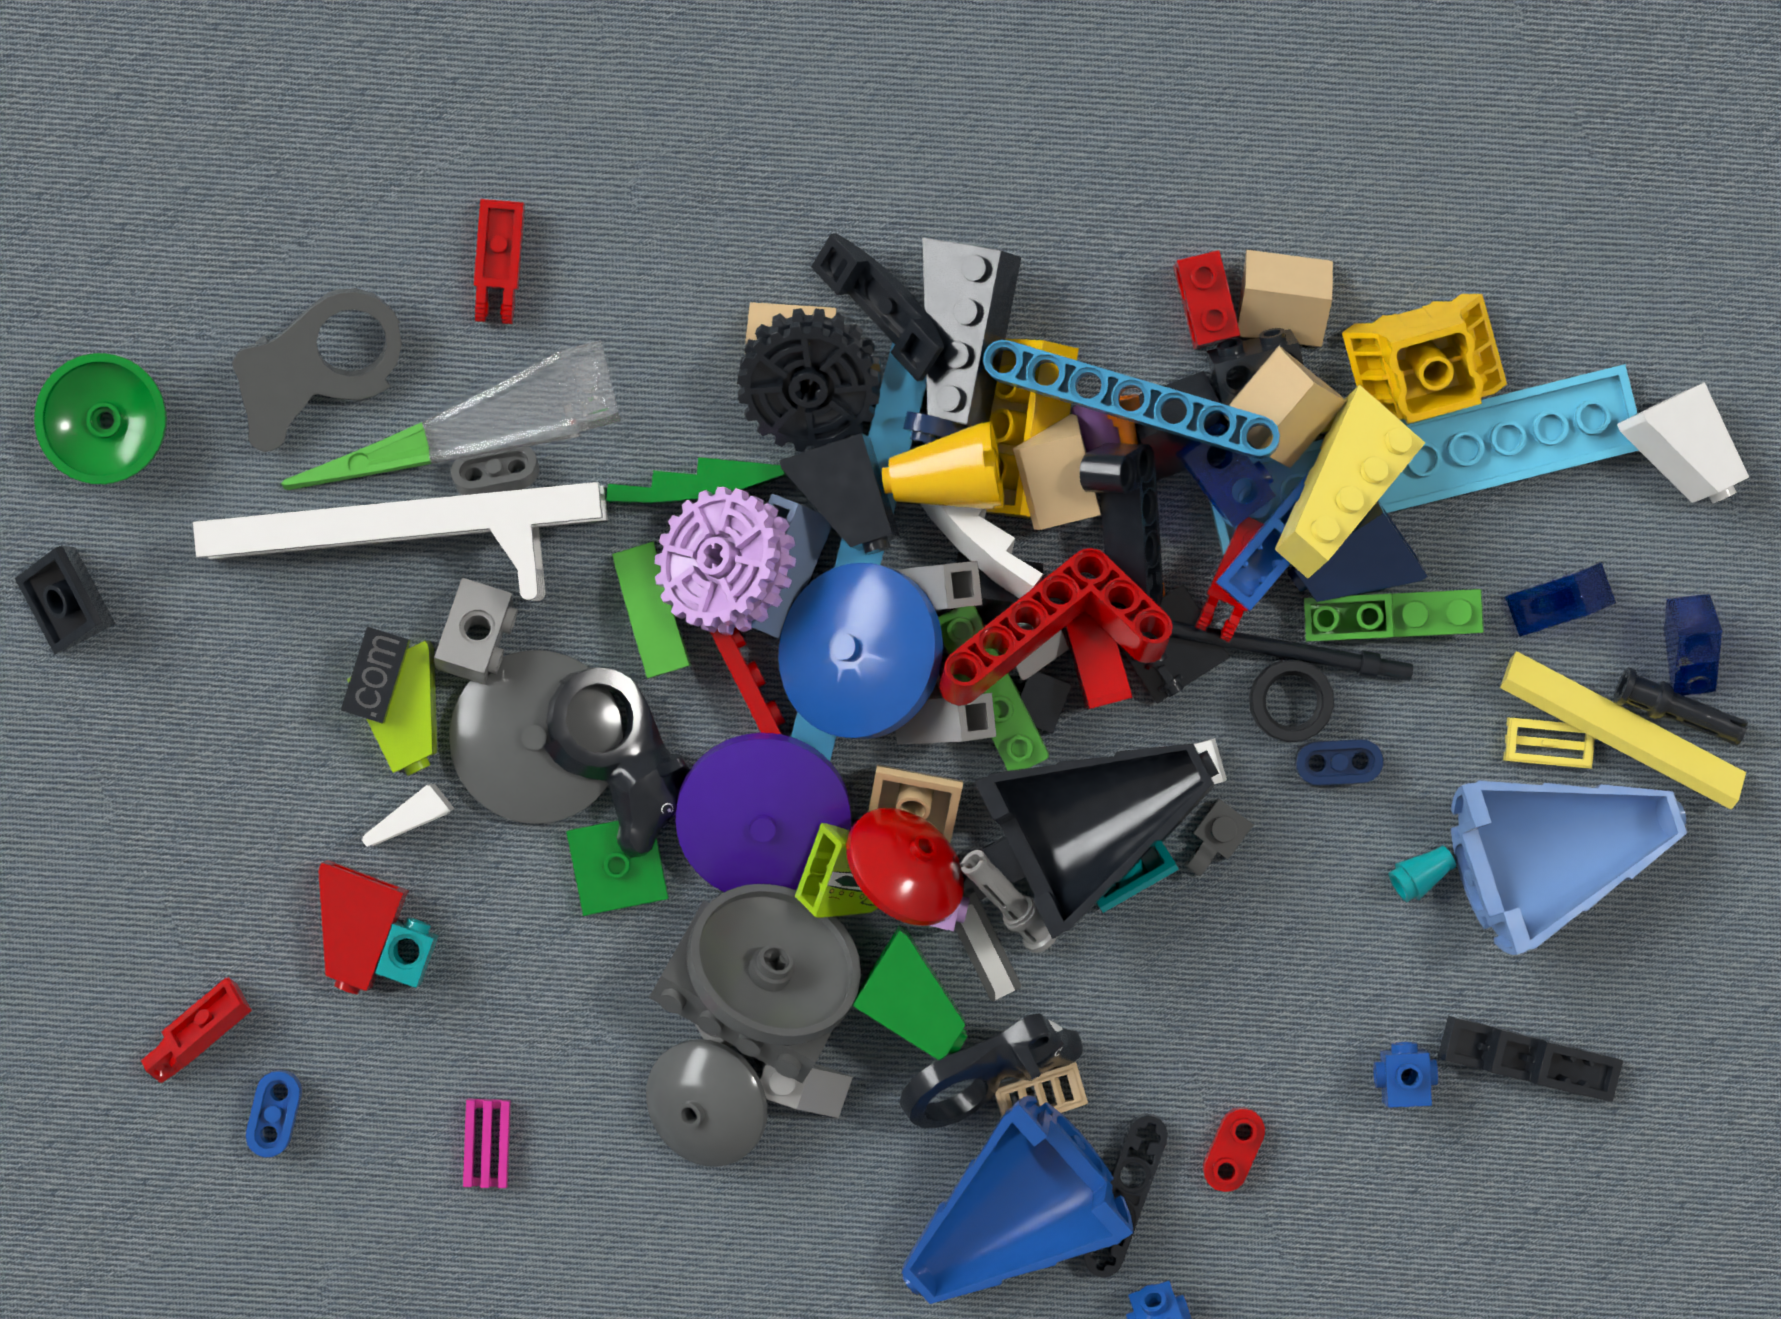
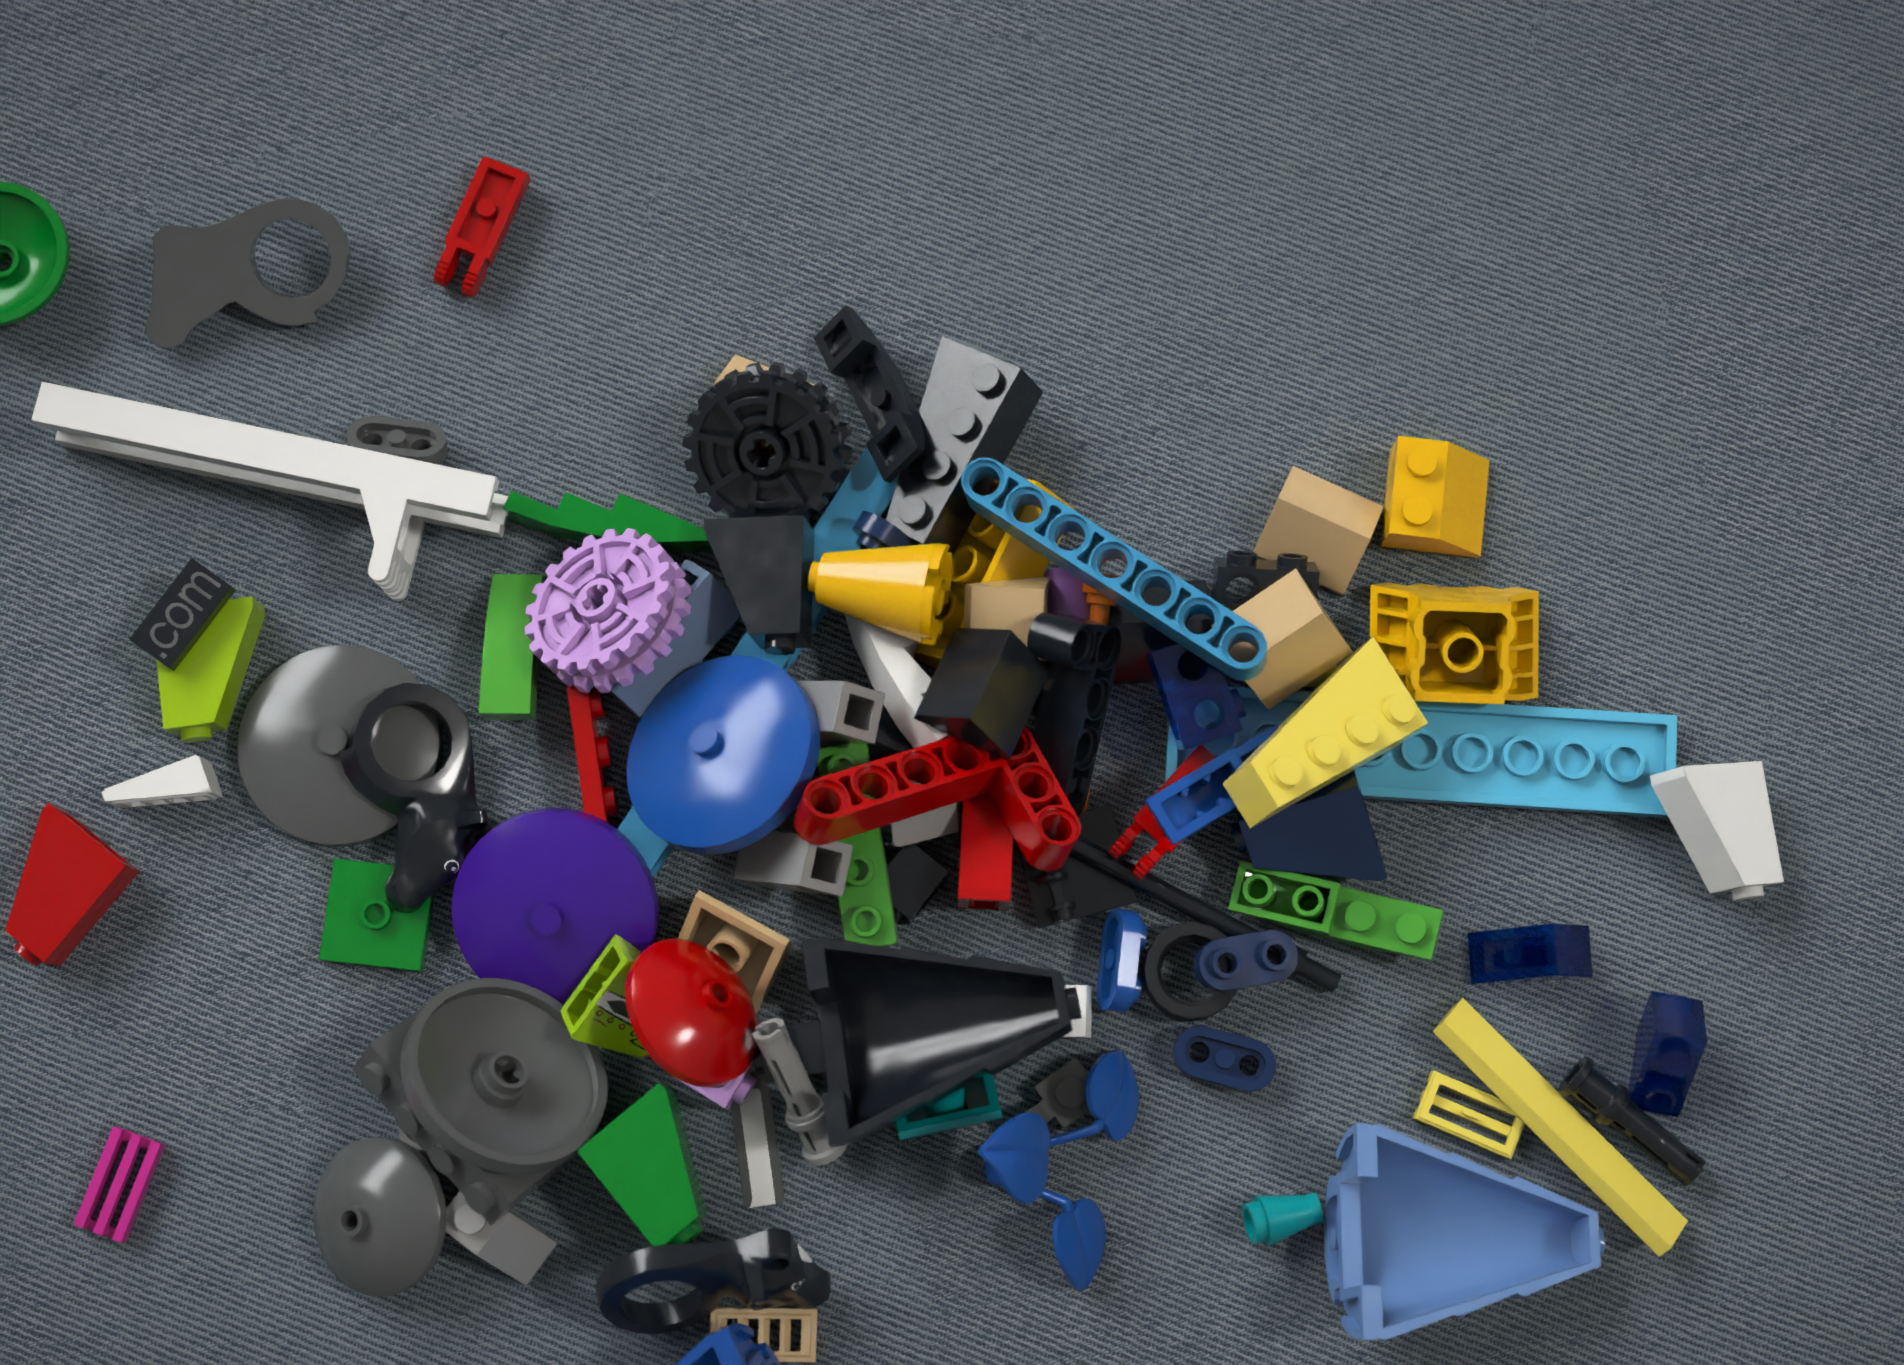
camera: 15 degrees right, 10 degrees down
(398, 969) = (87, 943): teal brick -> none
(473, 606) = (319, 579): light grey brick -> none
(534, 407) = (463, 389): clear plate -> none
(1056, 533) = (984, 689): none -> black slope
(1205, 893) = (1019, 1162): none -> blue plant
(1206, 299) = (1231, 500): red brick -> none
(1228, 700) = (1119, 958): none -> blue plate
(1335, 679) = (1248, 961): none -> dark blue plate
(1373, 242) = (1434, 498): none -> yellow slope

